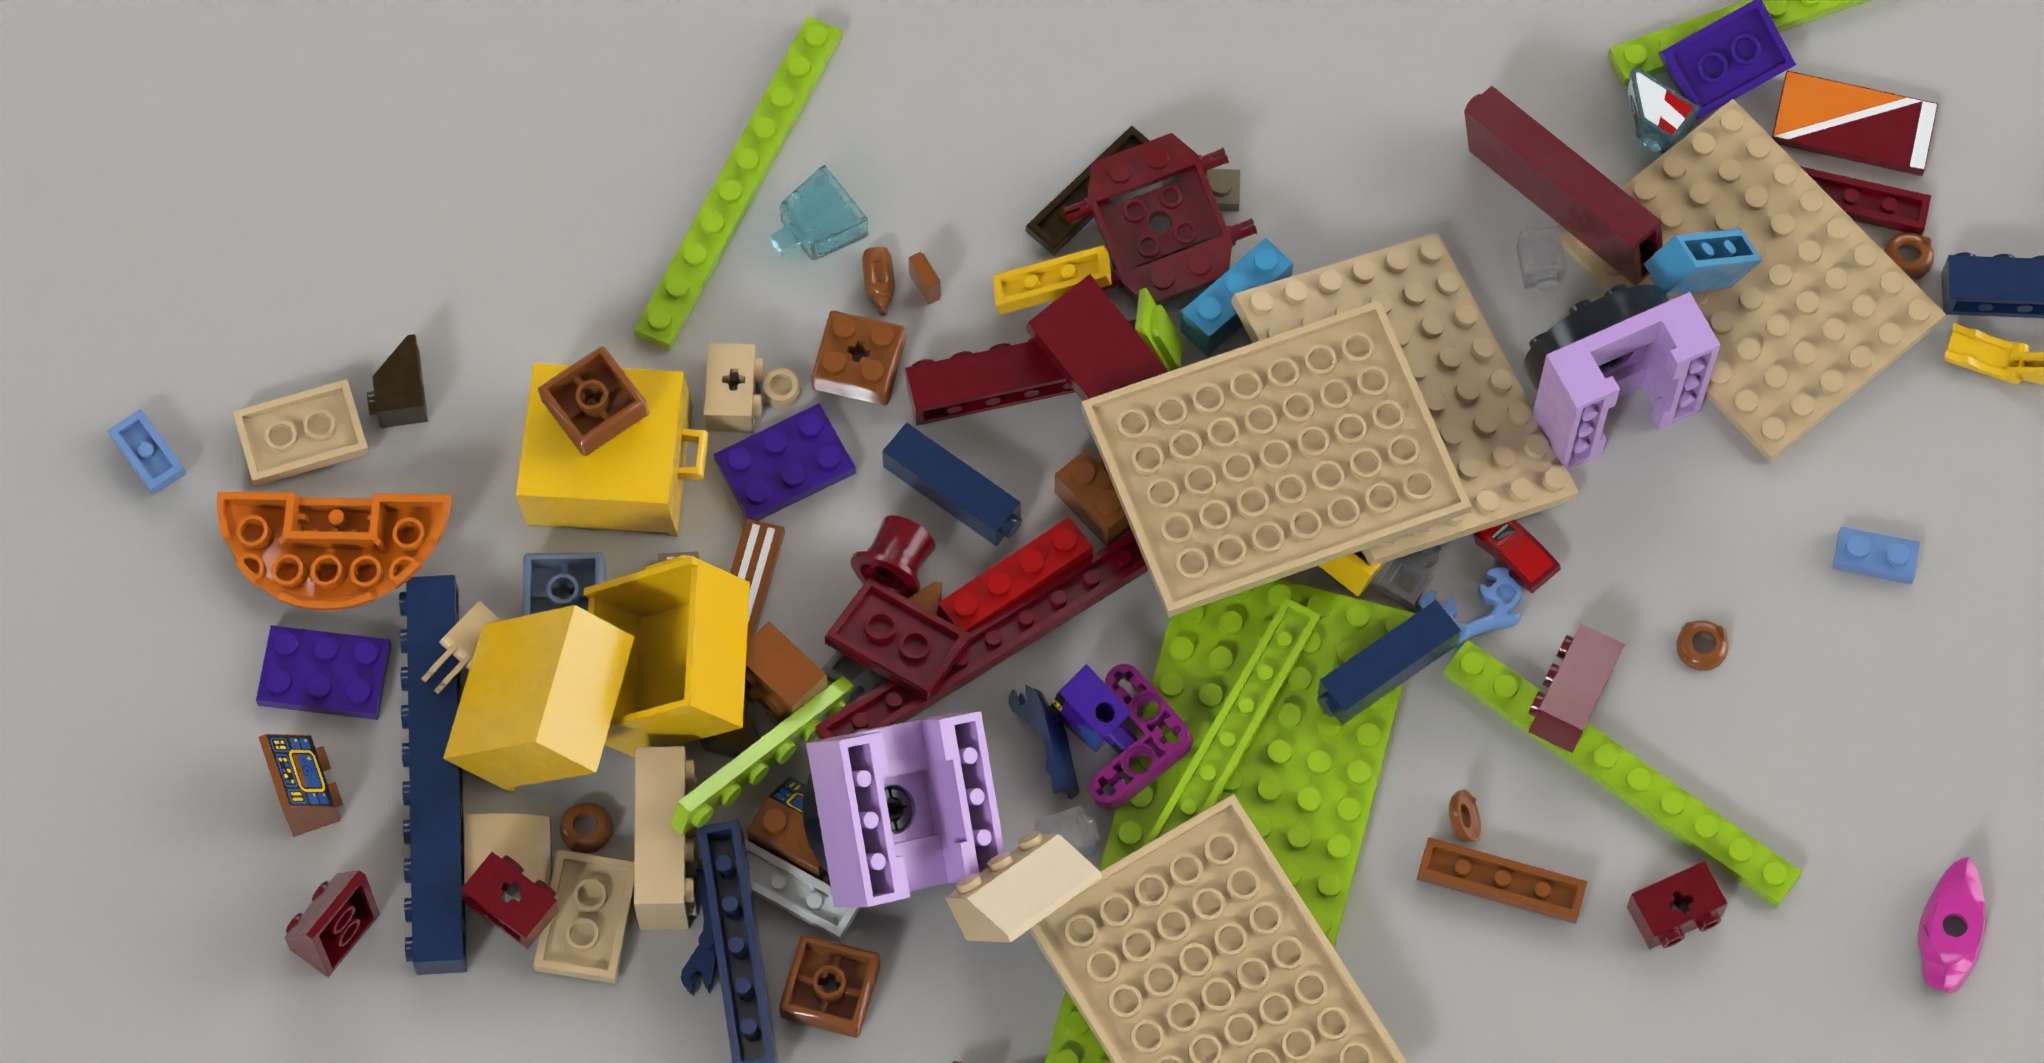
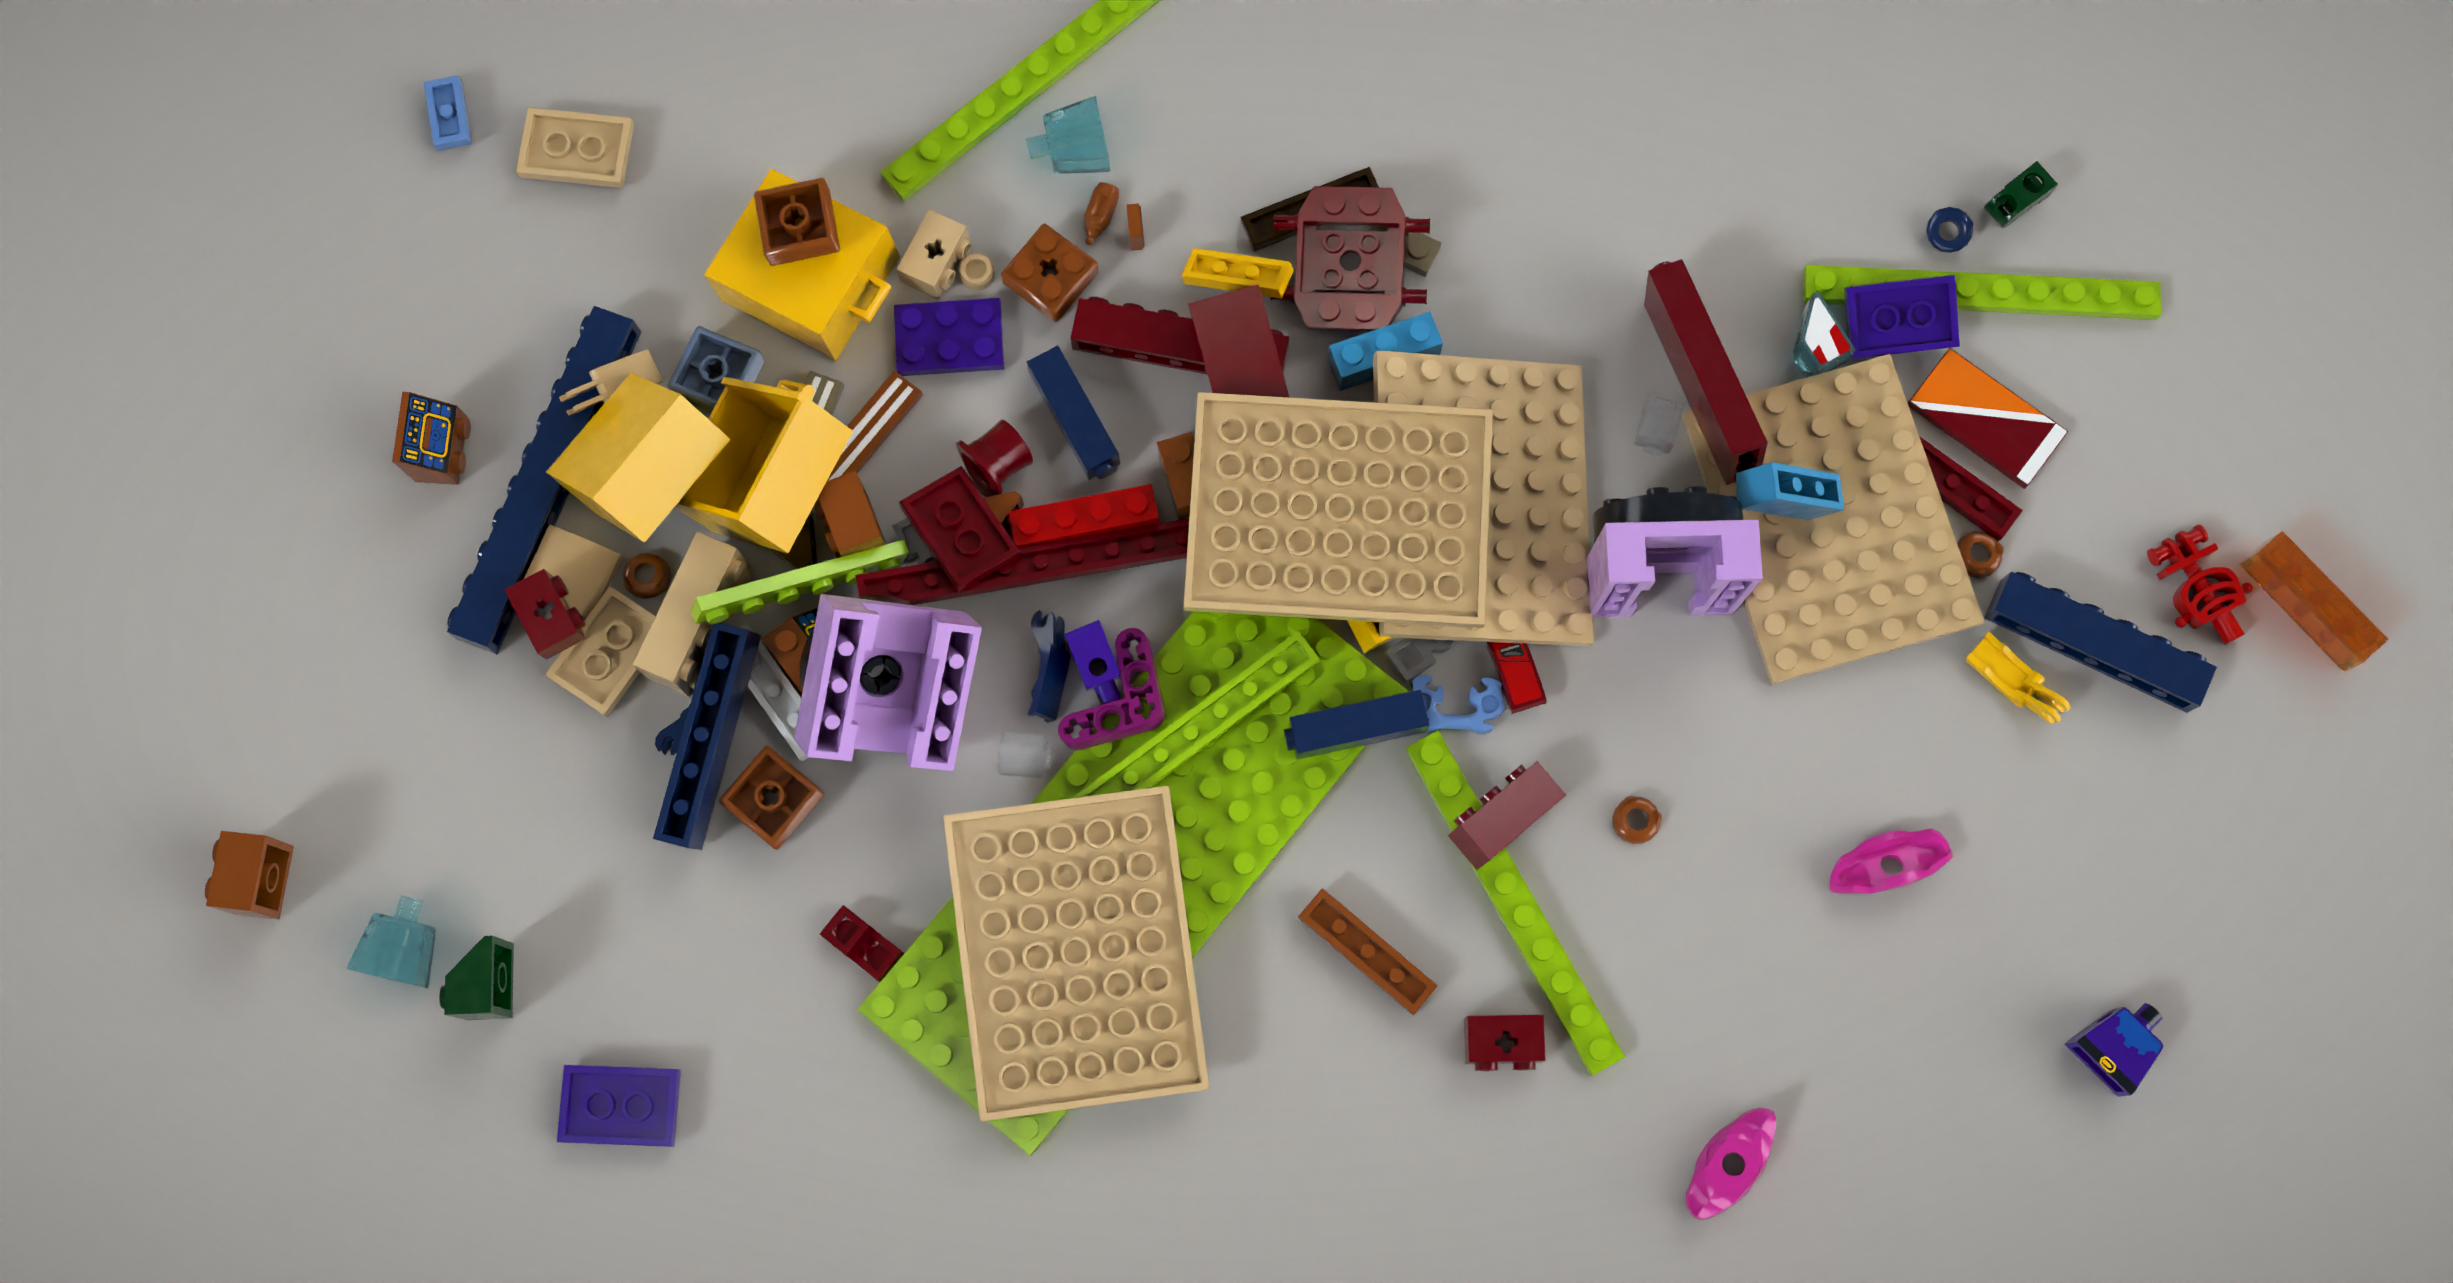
camera: 25 degrees right, 10 degrees up
(324, 672) = (501, 356): dark purple plate -> none
(330, 549) = (546, 254): orange brick -> none
(333, 922) = (401, 571): dark red slope -> none
(399, 387) = (670, 141): dark brown slope -> none
(1020, 888) = (951, 791): tan slope -> none
(1158, 331) = (1300, 357): lime piece -> none
(1464, 816) = (1369, 880): dark orange piece -> none
(1876, 555) = (1823, 806): medium blue plate -> none
(1987, 559) = (1918, 852): none -> dark pink piece

